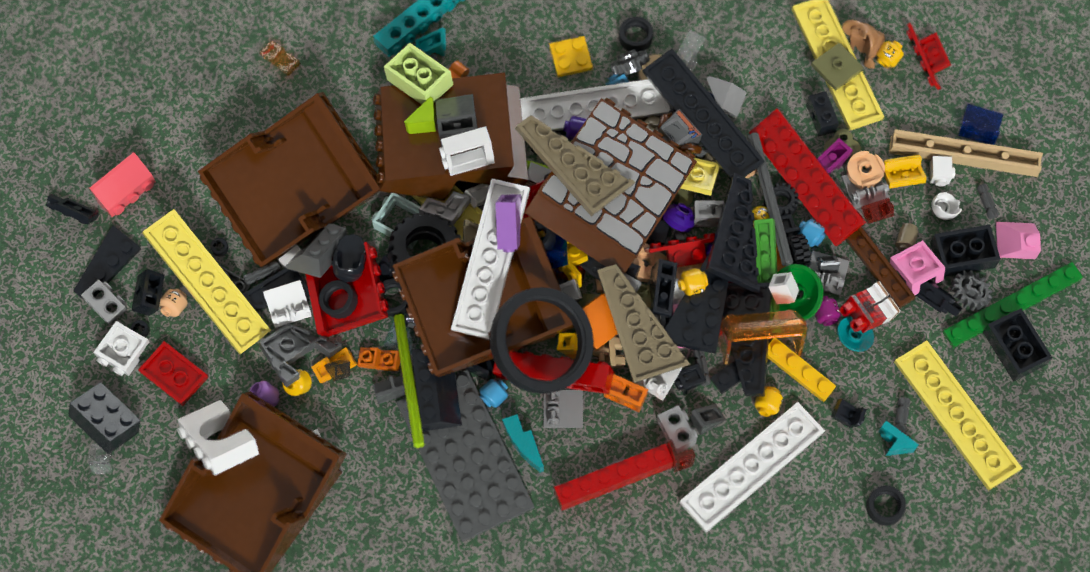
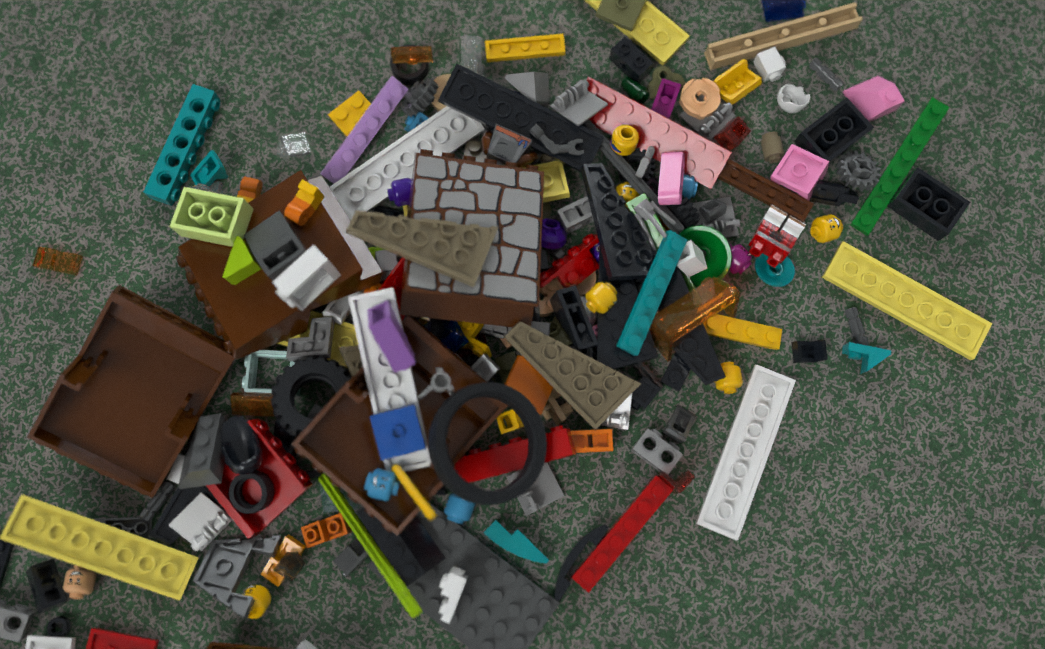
camera: 30 degrees left, 10 degrees up
(215, 242) = (90, 495): black bush -> none
(266, 392) = (227, 631): medium lavender head -> none
(373, 235) = (251, 404): none -> clear orange plate
(443, 333) = (381, 484): none -> dark azure head
(458, 444) = (452, 587): none -> white plate
(465, 347) = (414, 492): none -> yellow bar
(476, 299) = (398, 432): none -> blue plate
(494, 97) = (304, 203): none -> leg
(508, 54) = (292, 146): none -> clear bracket
(527, 275) = (439, 383): none -> light grey plant
(544, 491) = (562, 583): none -> black slope
(572, 68) = (364, 130): none -> lavender plate
(641, 26) = (412, 54): none -> clear orange plate
(717, 151) = (553, 148): none -> dark grey piece
(736, 297) = (651, 293): none -> teal plate
(739, 64) = (525, 47): none -> yellow plate
(756, 124) = (578, 103): none -> light grey hinge
(766, 233) = (646, 211): none -> light grey plant
(780, 171) = (624, 140): none -> yellow head
(786, 197) = (645, 162): none -> light grey piece
(802, 218) = (671, 178): none -> bright pink beam
(814, 139) = (635, 90): none -> dark green cone
(898, 496) = (901, 414): black tyre -> none
(918, 323) = (826, 228): none -> yellow head

